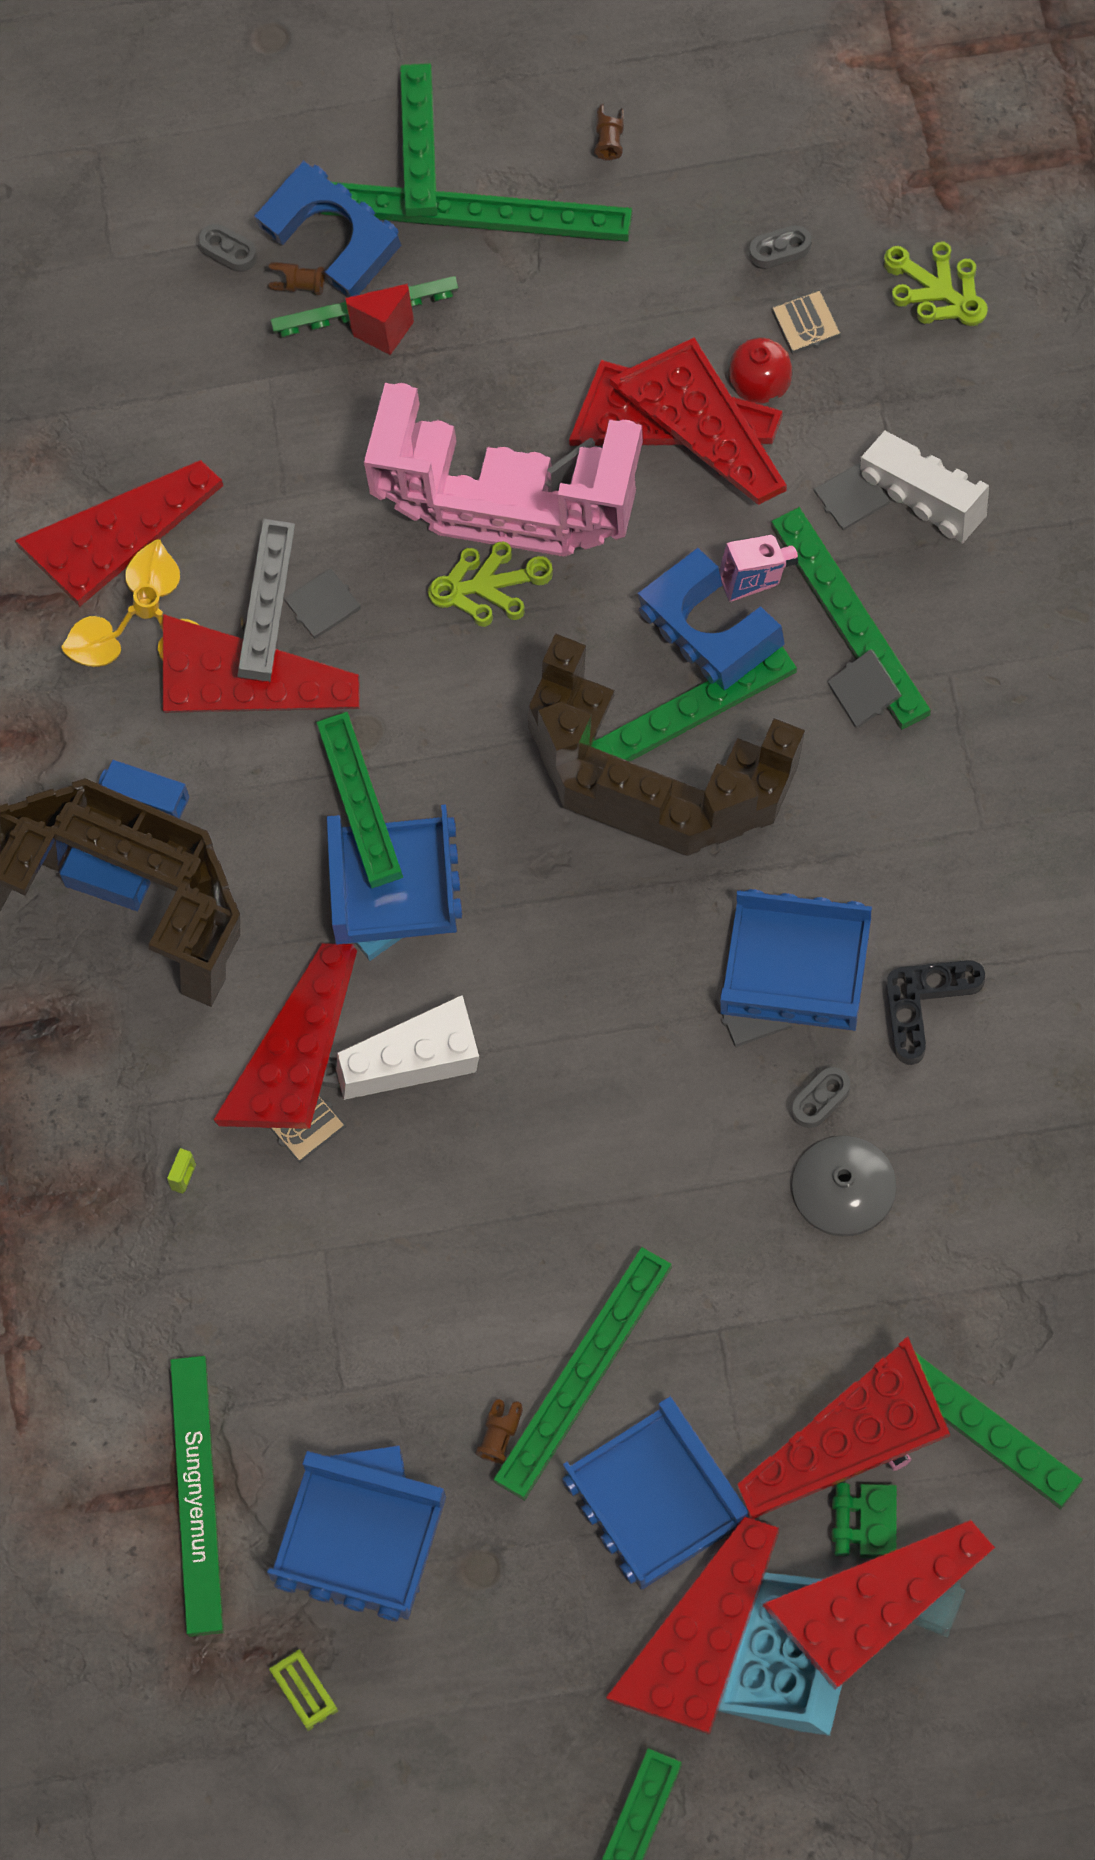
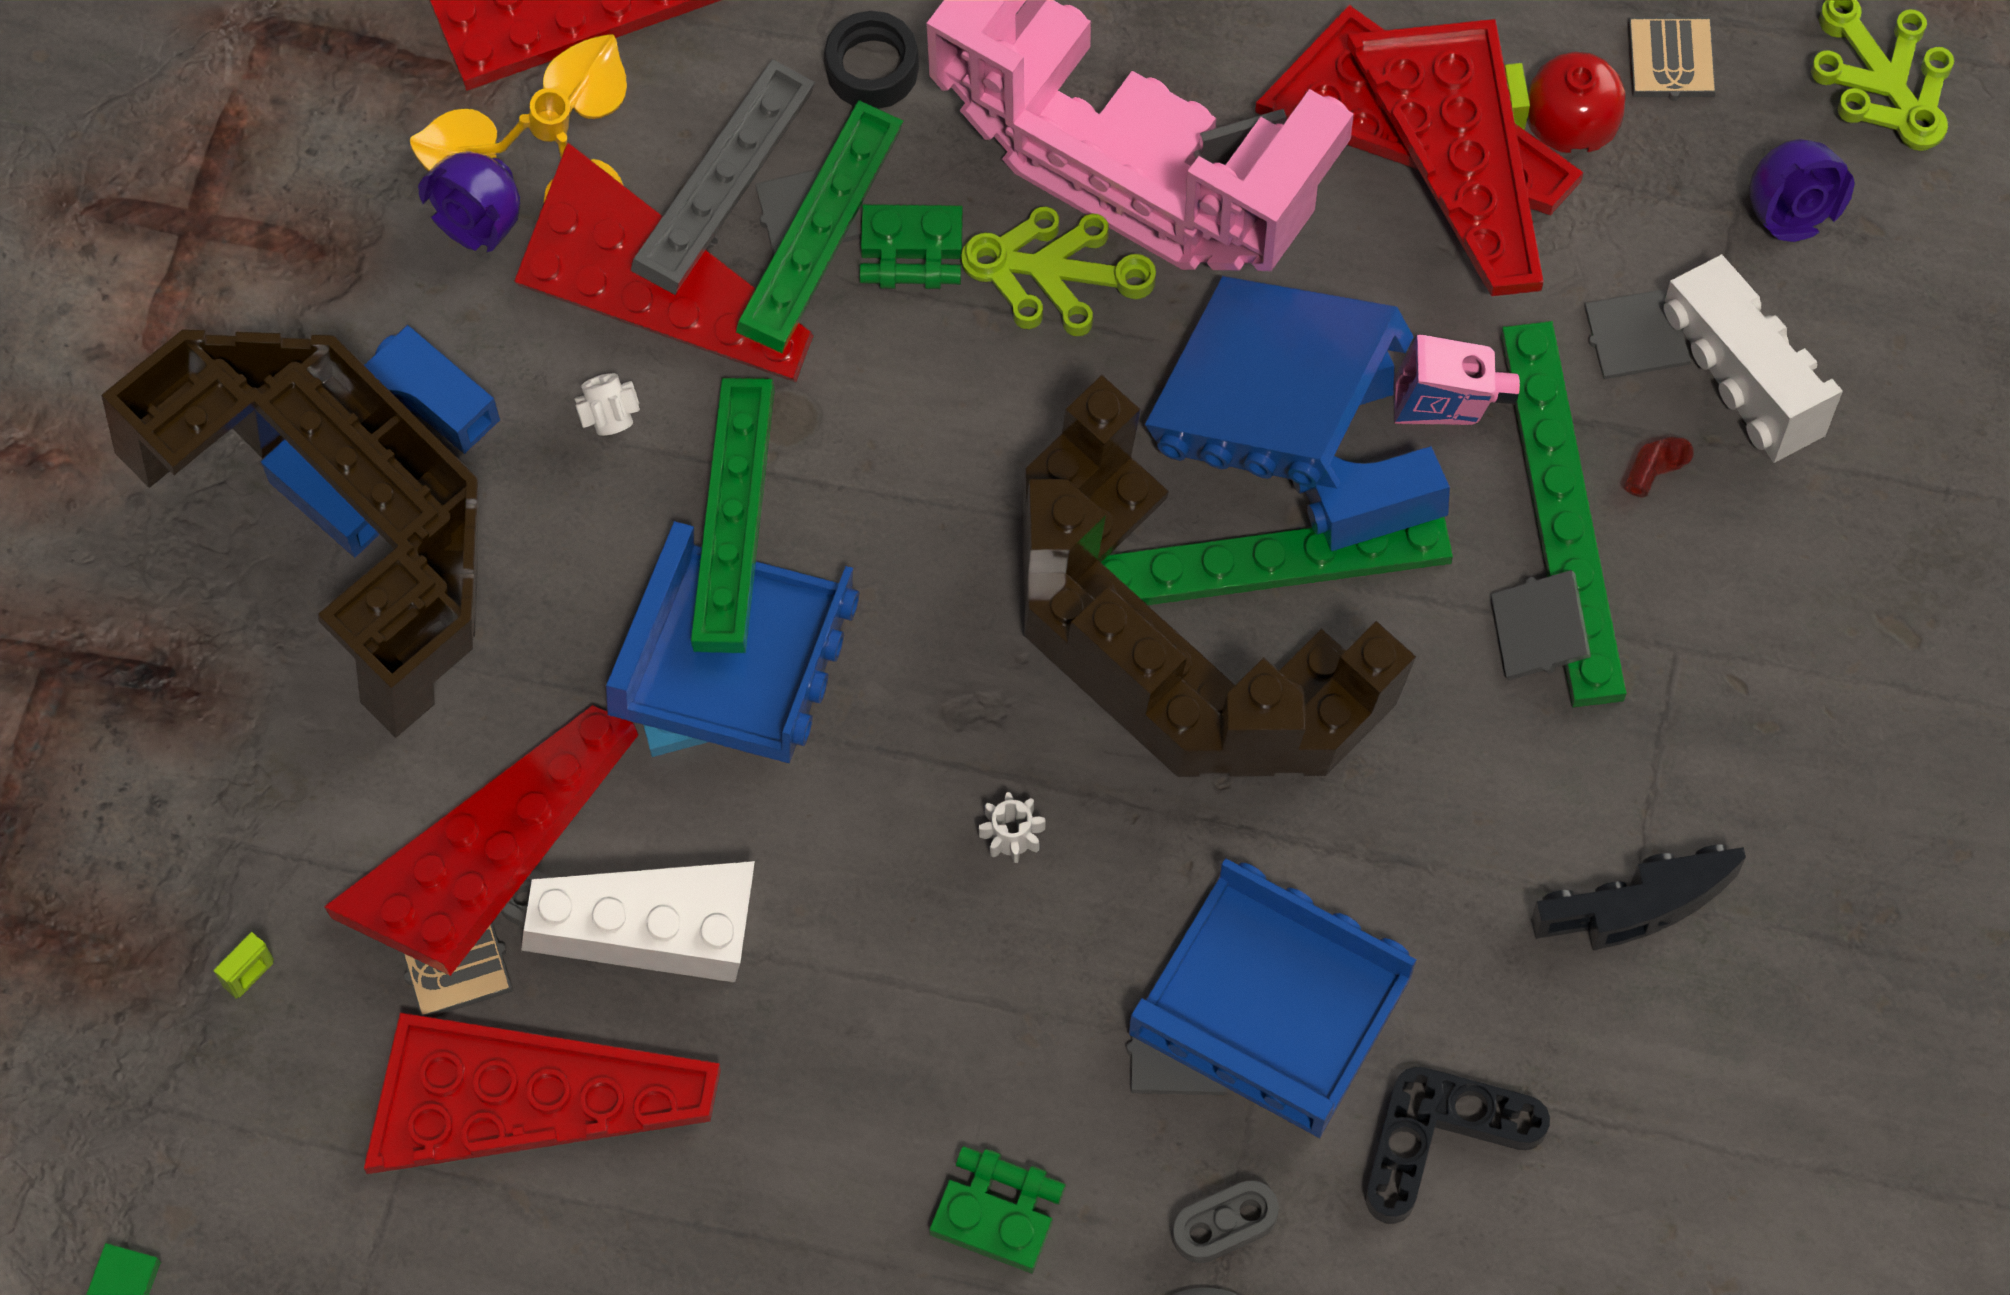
camera: 15 degrees right, 0 degrees up
(117, 670) = (472, 198): none -> dark purple cylinder
(253, 763) = (607, 404): none -> white gear
(318, 476) = (872, 27): none -> black tyre
(337, 609) = (819, 227): none -> green plate
(363, 1185) = (498, 1091): none -> red wing
(394, 593) = (911, 233): none -> green plate
(598, 927) = (1012, 843): none -> white gear
(651, 601) = (1274, 379): none -> blue panel
(686, 1151) = (993, 1225): none -> green plate
(725, 376) = (1518, 93): none -> lime tile
(893, 566) = (1657, 459): none -> clear red arm
(914, 374) = (1800, 188): none -> dark purple cylinder
(995, 821) = (1660, 896): none -> black slope

